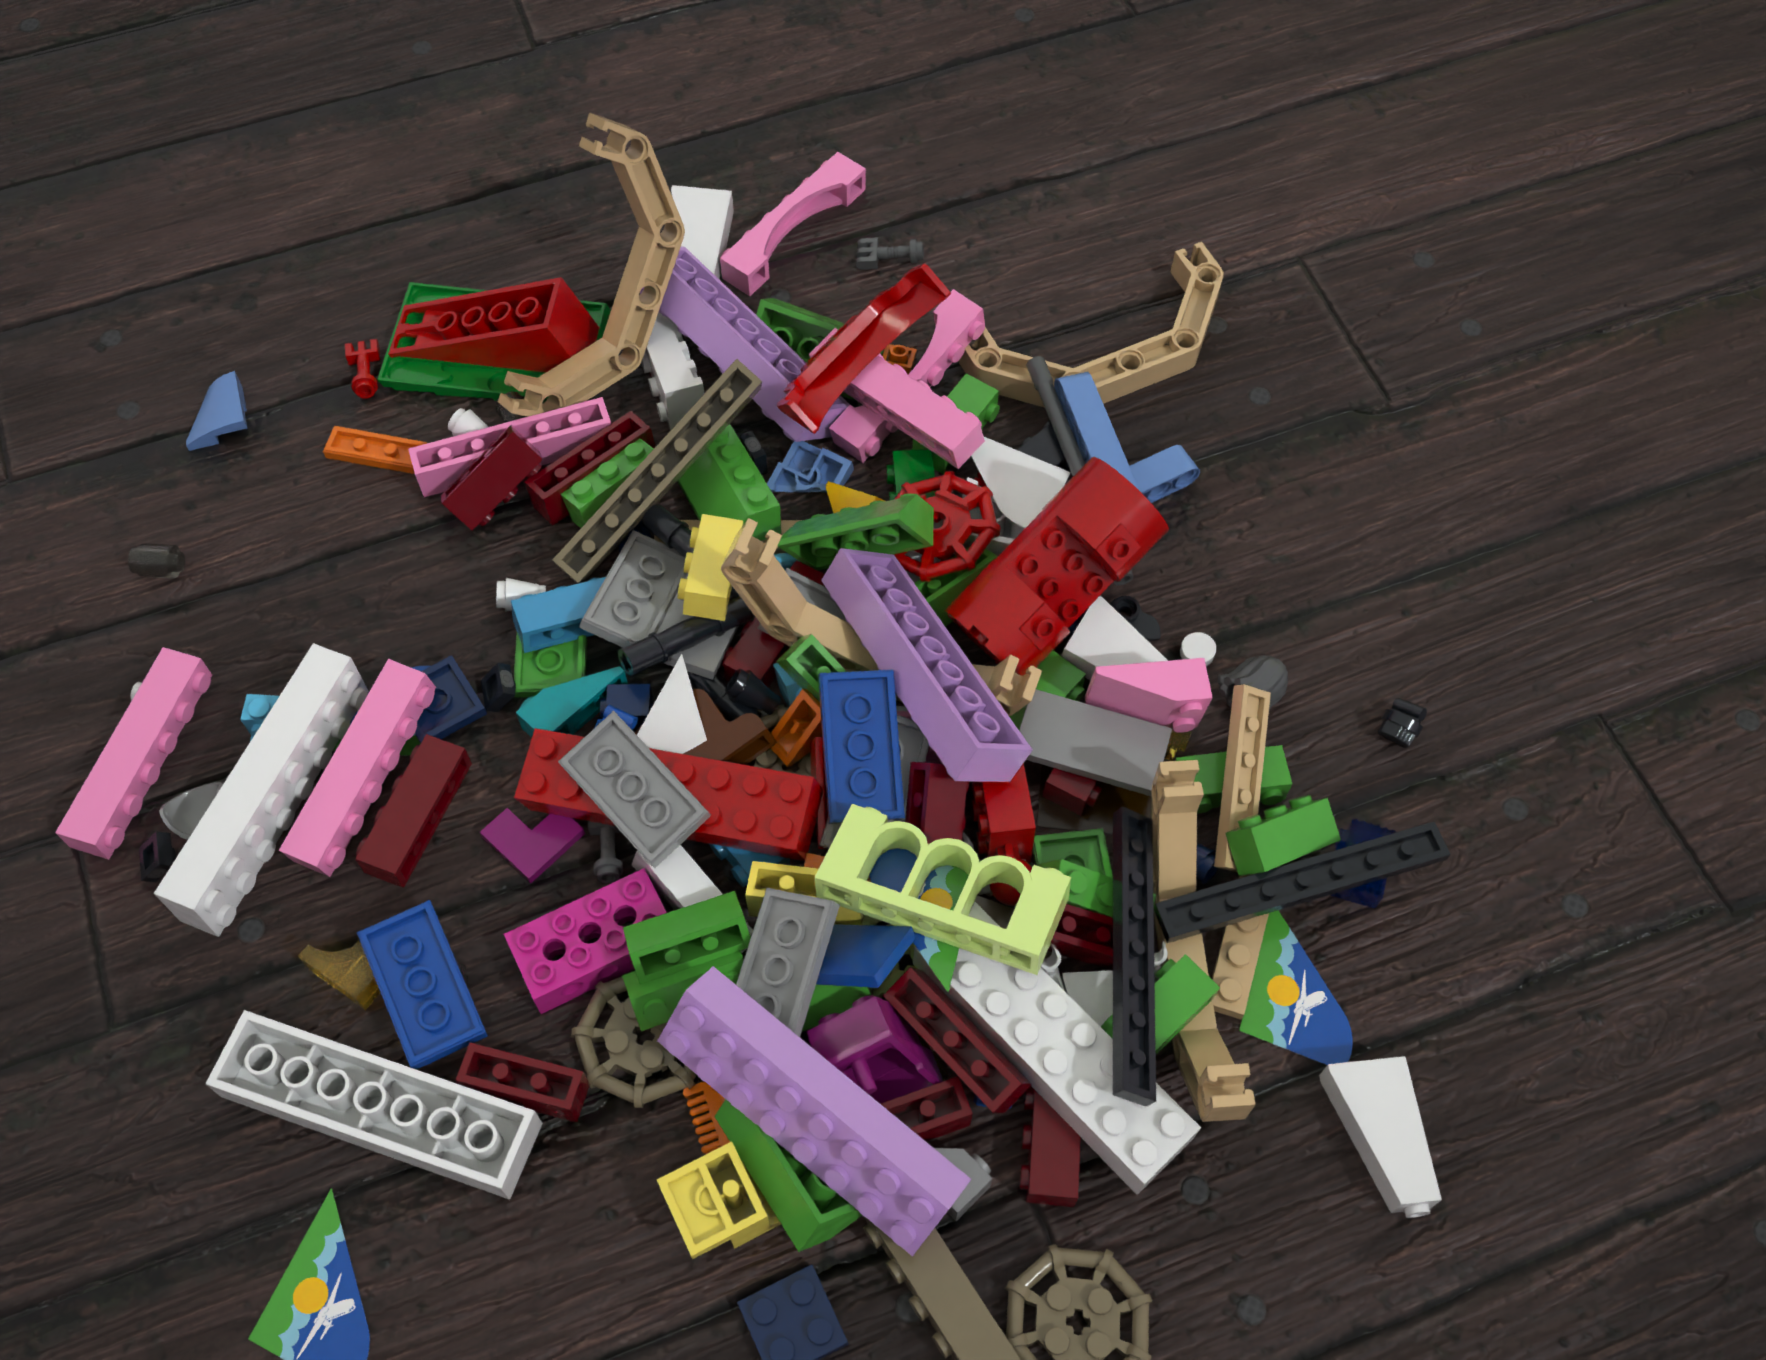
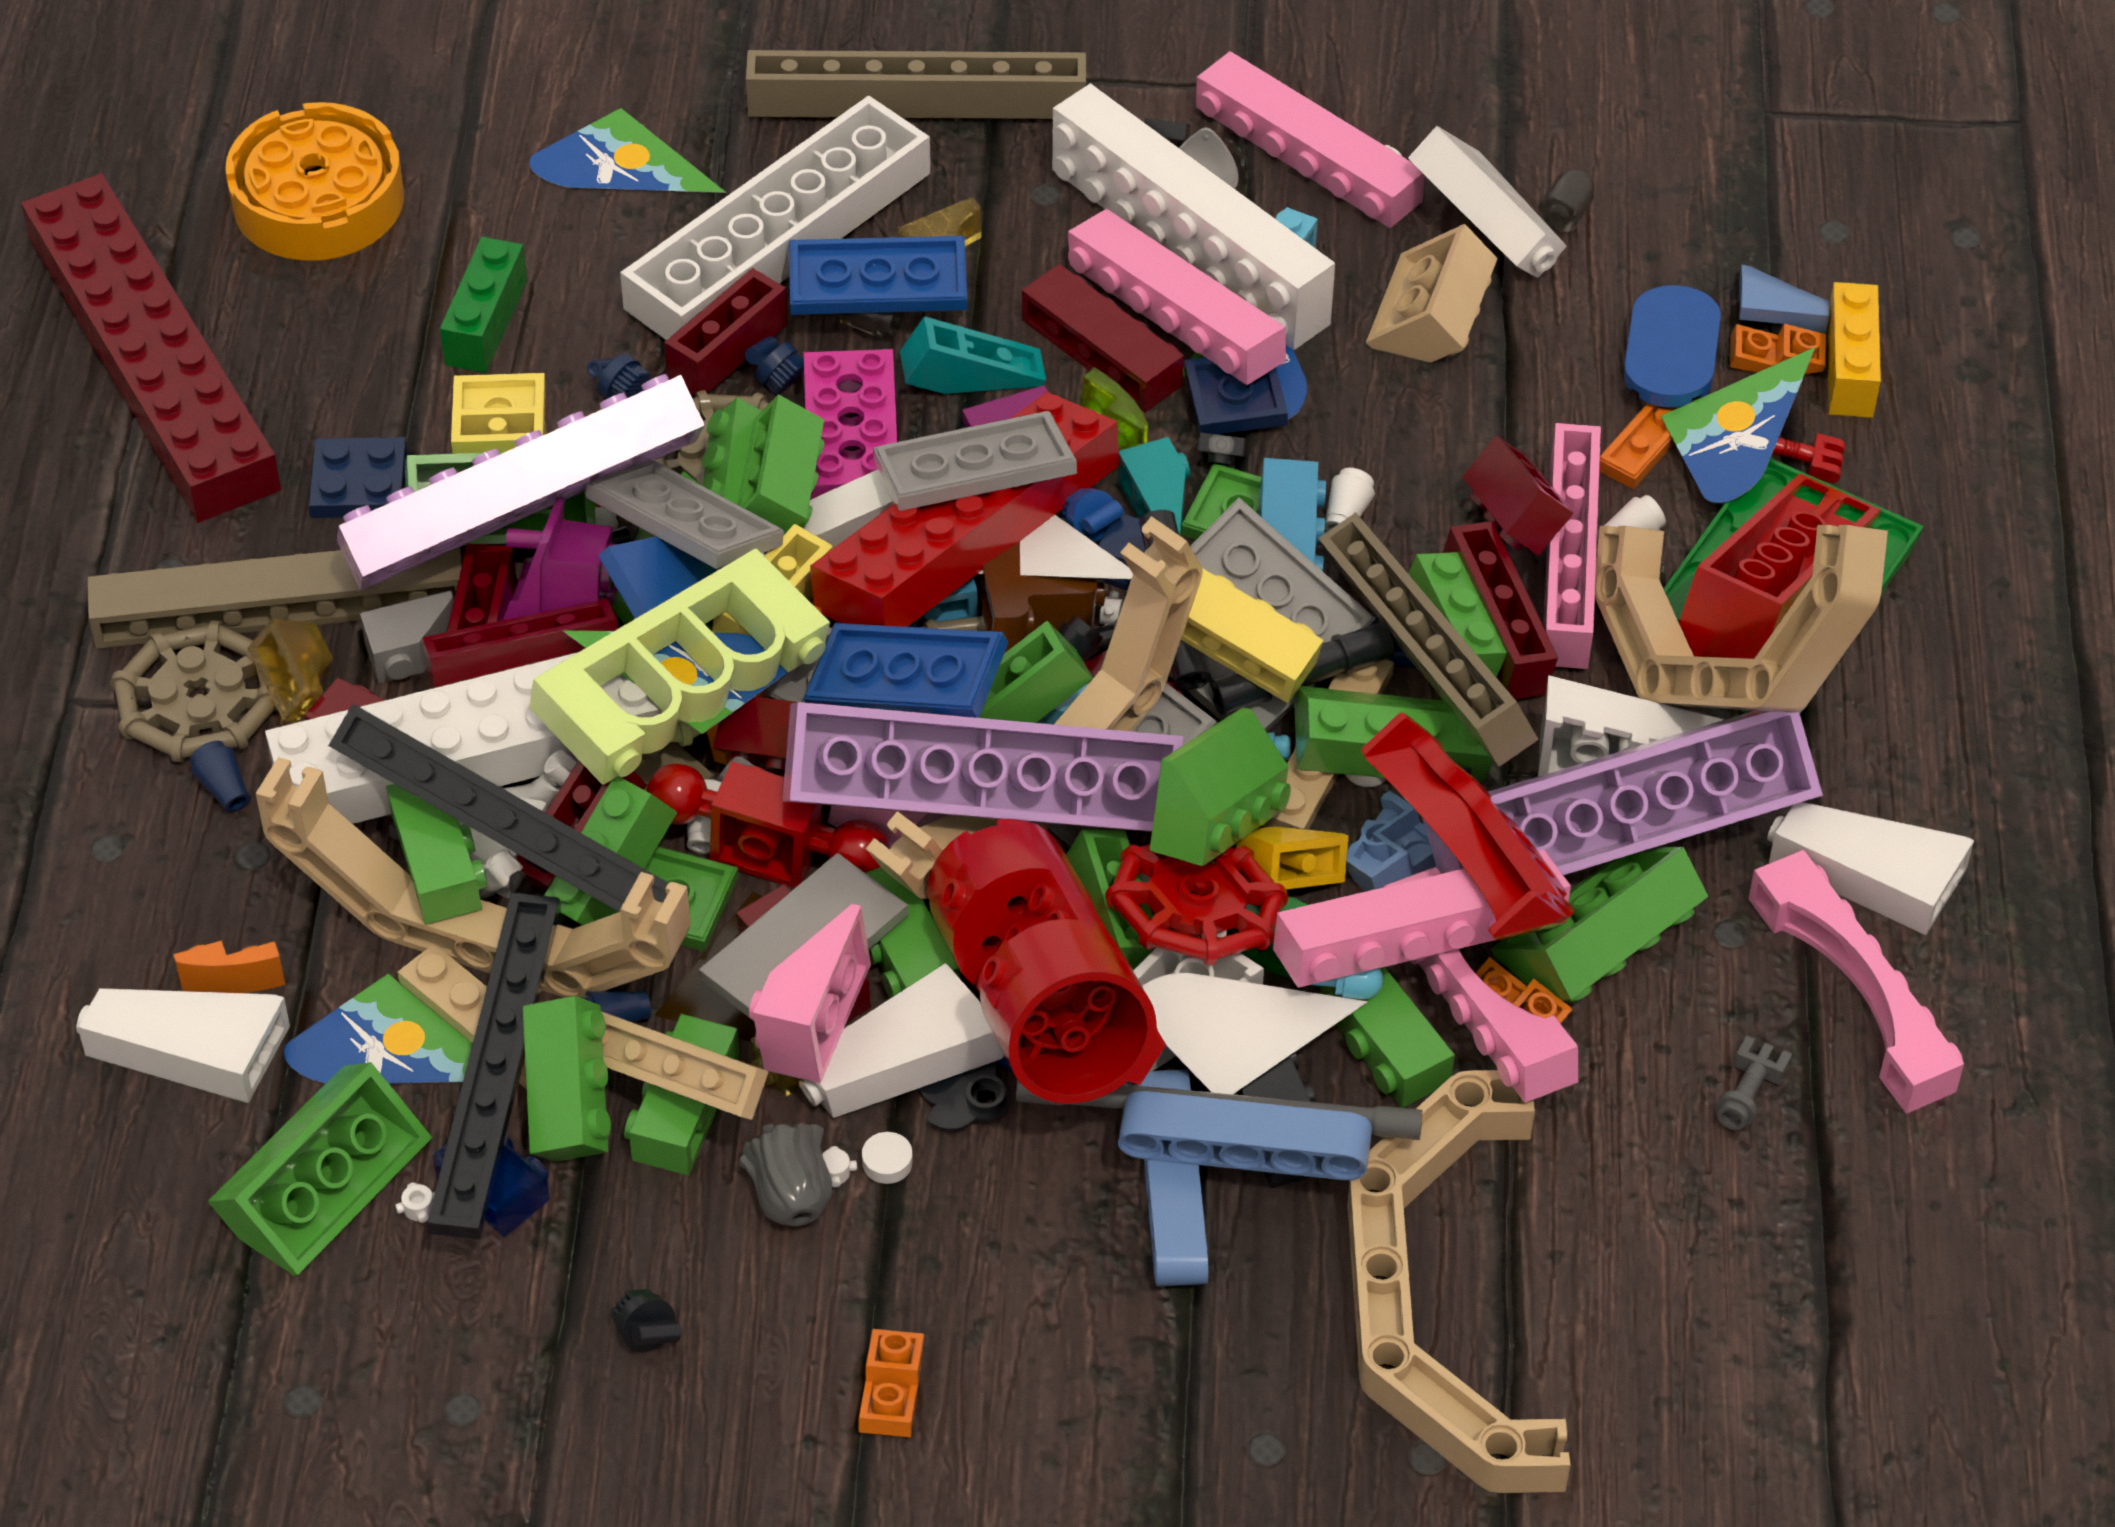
camera: 115 degrees right, 10 degrees down
(163, 1073) = (912, 82): none -> dark tan brick
(184, 596) = (1488, 201): none -> white slope
(260, 352) = (1853, 350): none -> yellow brick
(268, 402) = (1758, 350): none -> orange slope
(289, 455) = (1672, 345): none -> blue tile
(291, 611) = (1434, 297): none -> tan slope
(363, 394) = (1735, 429): none -> sticker
(477, 892) = (965, 360): none -> teal slope
(495, 761) = (1111, 400): none -> clear neon green slope
(534, 1034) = (777, 365): none -> dark blue piece
(559, 1313) = (483, 304): none -> green brick
(601, 1151) = (618, 375): none -> dark blue piece
(1031, 1242) = (289, 661): none -> clear yellow arch
(1149, 1249) = (220, 774): none -> dark blue cone
(1218, 670) = (838, 1165): none -> white piece
(1322, 1147) = (211, 970): none -> orange slope
(1348, 582) = (891, 1383): none -> orange slope
(1402, 907) = (416, 1202): none -> white piece
(1426, 978) = (321, 1168): none -> bright green slope

